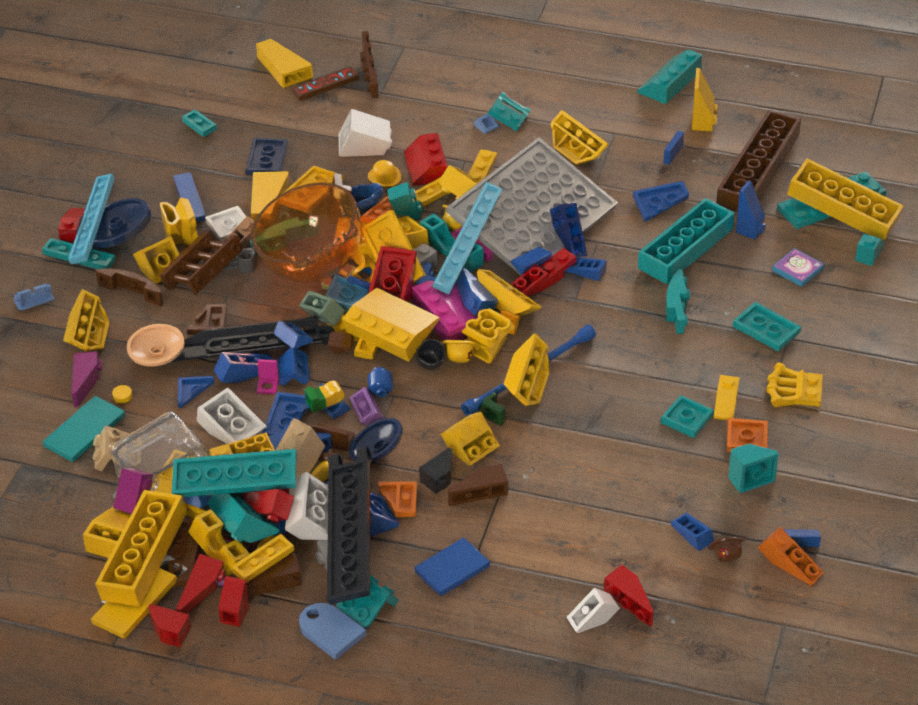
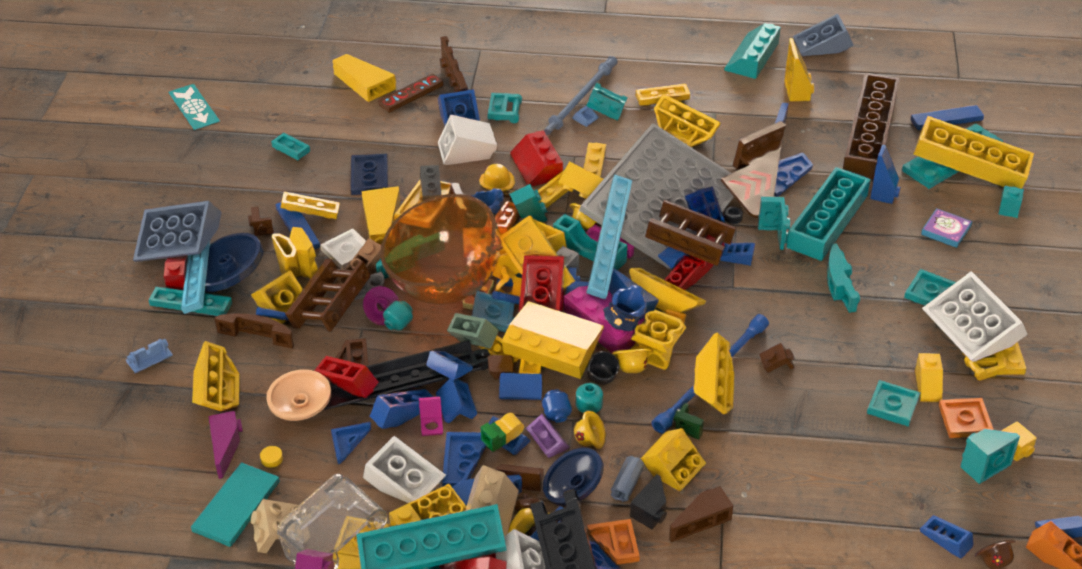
camera: 10 degrees left, 0 degrees up
(77, 189) = (176, 230): none -> sand blue slope
(118, 75) = (194, 106): none -> teal sticker
(147, 273) = (271, 313): none -> blue wheel
(155, 193) = (261, 226): none -> reddish brown bracket
(201, 333) = (348, 375): none -> red slope
(204, 180) = (310, 205): none -> yellow plate
(253, 272) = (378, 296): none -> magenta dish
(260, 288) = (398, 315): none -> teal head
(318, 169) = (430, 181): none -> dark grey plate
(354, 361) = (520, 386): none -> blue slope
(366, 100) = (458, 104): none -> blue slope
(404, 405) = (590, 430): none -> yellow hat
(405, 105) = (499, 104): none -> teal plate
(410, 379) = (589, 398): none -> teal head
(424, 449) = (627, 478): none -> sand blue axle
(461, 303) = (626, 308): none -> piece
(517, 79) = (605, 69): none -> sand blue bar
(537, 251) = (687, 242): none -> reddish brown fence
(574, 109) = (652, 95): none -> yellow plate
(592, 364) = (777, 357): none -> reddish brown bracket
(597, 233) = (733, 215): none -> black tile
(630, 237) = (773, 216): none -> teal bracket
(634, 186) = (760, 157): none -> piece
(746, 70) = (824, 38): none -> sand blue slope
(784, 351) = (975, 318): none -> white slope
(788, 461) = (1026, 442): none -> yellow brick
(846, 161) = (952, 116): none -> blue tile

